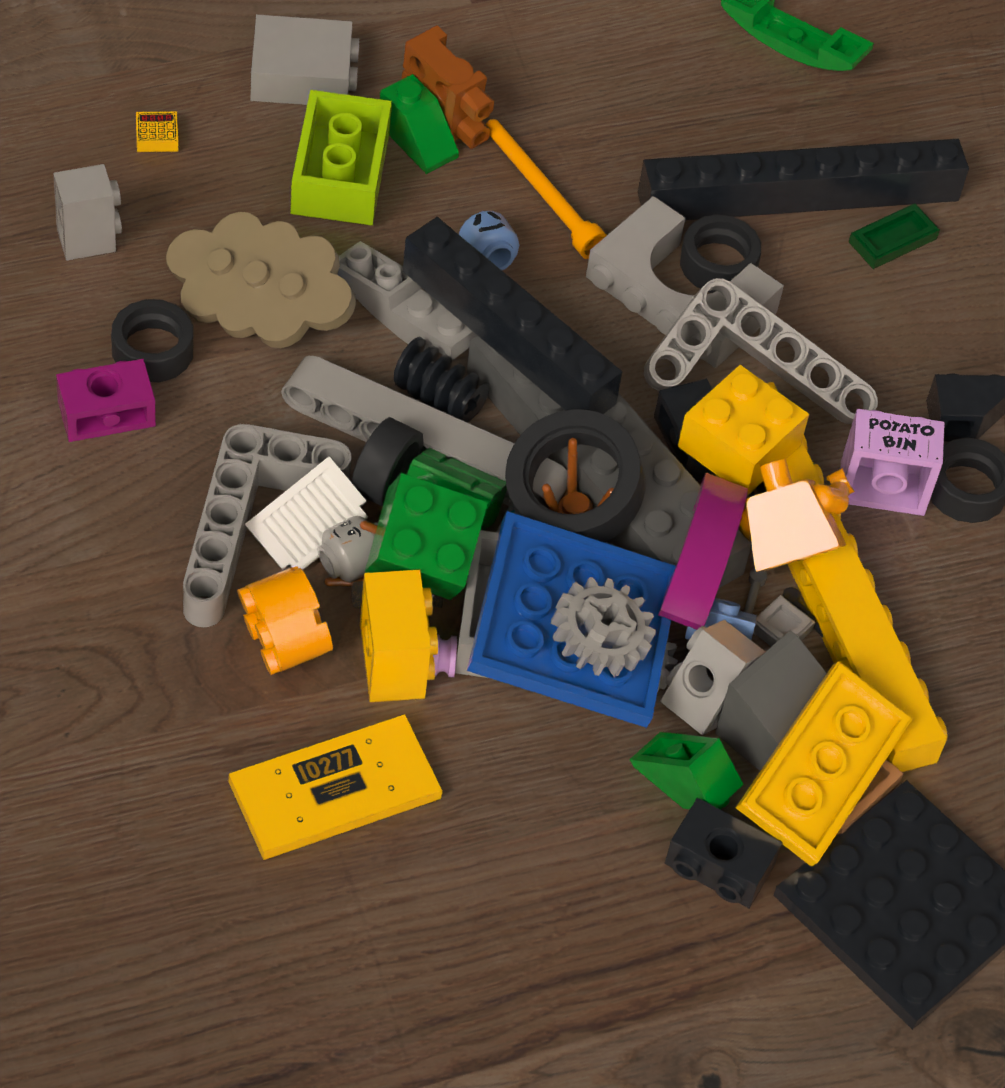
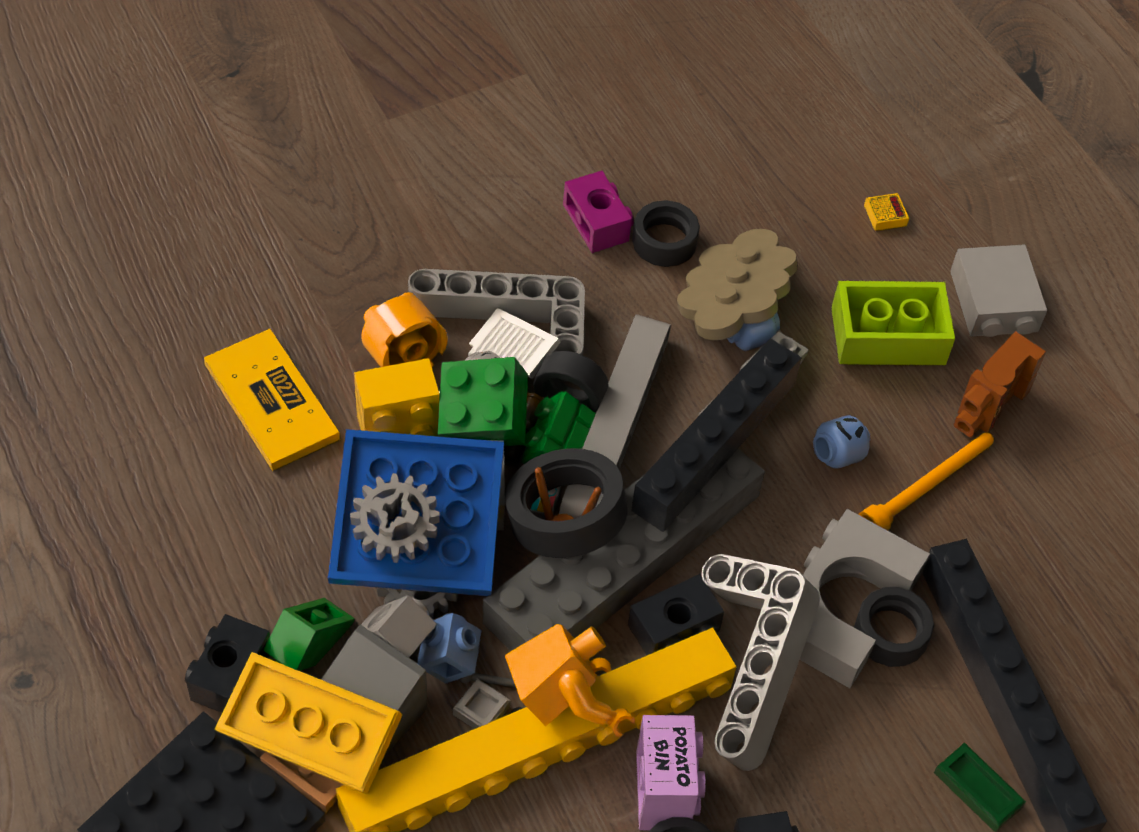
camera: 85 degrees right, 0 degrees up
(86, 211) = (767, 165): light grey brick -> none
(419, 124) = (949, 381): green slope -> none
(437, 384) = (671, 416): black piece -> none
(704, 552) = (510, 599): magenta slope -> none
(742, 428) = (655, 629): yellow brick -> none

